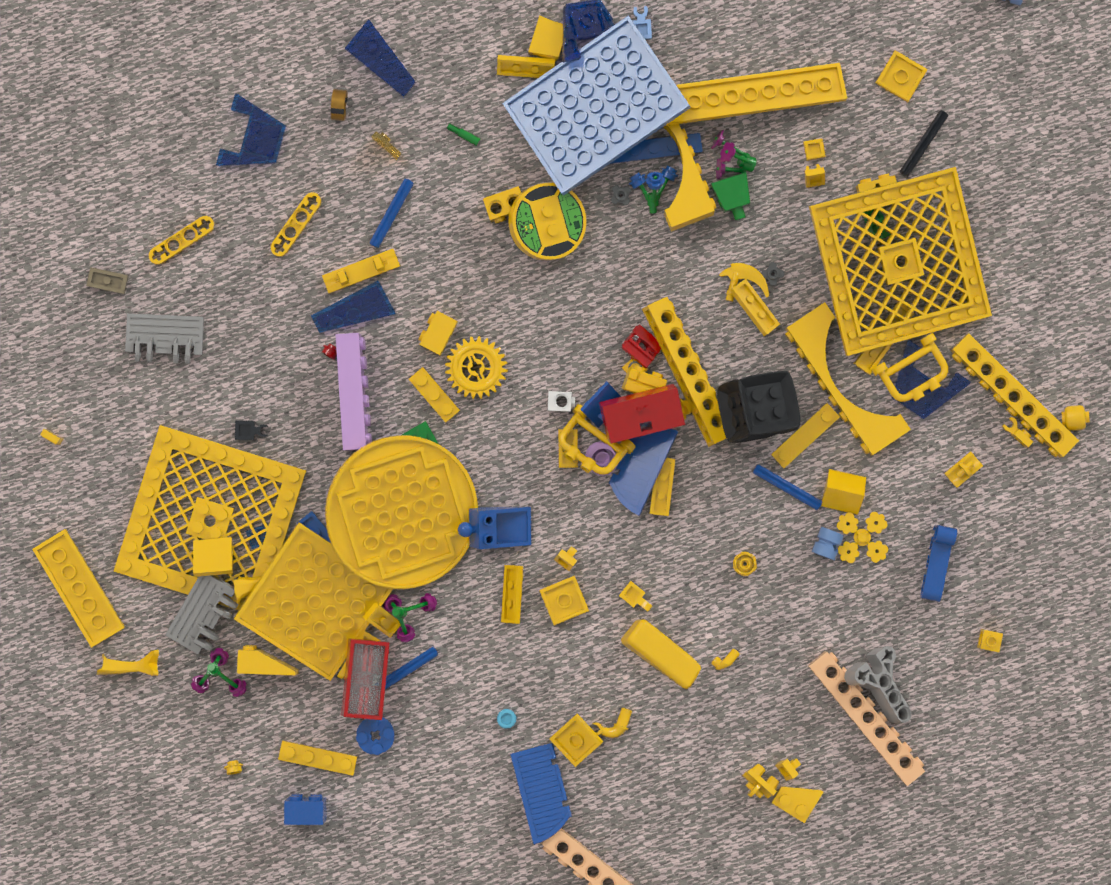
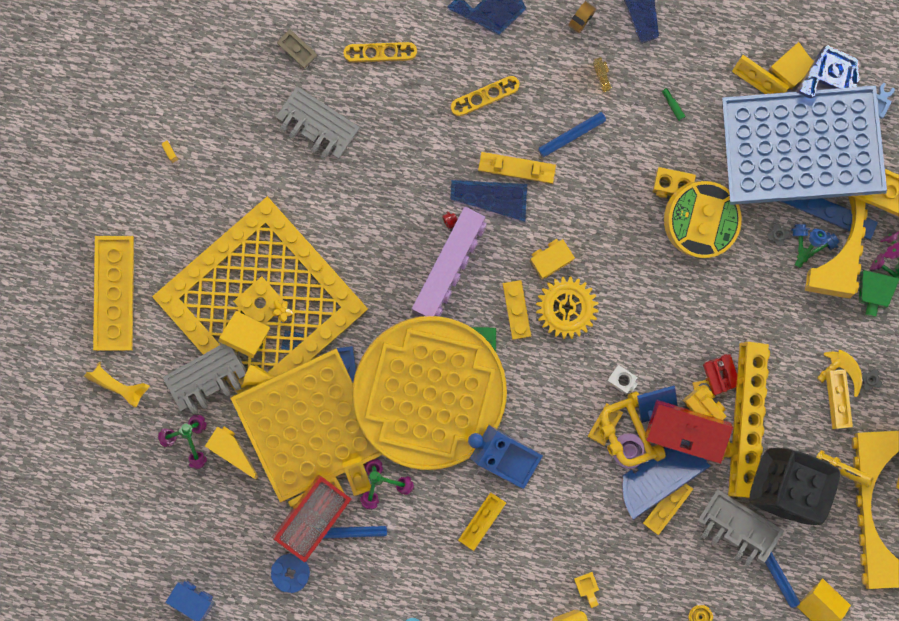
camera: 30 degrees right, 5 degrees down
(233, 517) = (282, 311): none -> yellow plant
(233, 767) = (151, 527): yellow plate -> none
(246, 430) = (339, 244): black plate -> none
(317, 757) = (228, 563): yellow plate -> none
(564, 600) = (524, 554): yellow plate -> none
(566, 559) = (547, 519): yellow tile -> none
(733, 465) = (740, 525): none -> light grey hinge
(805, 435) = (818, 536): yellow plate -> none
(815, 364) = (864, 479): none -> yellow pin

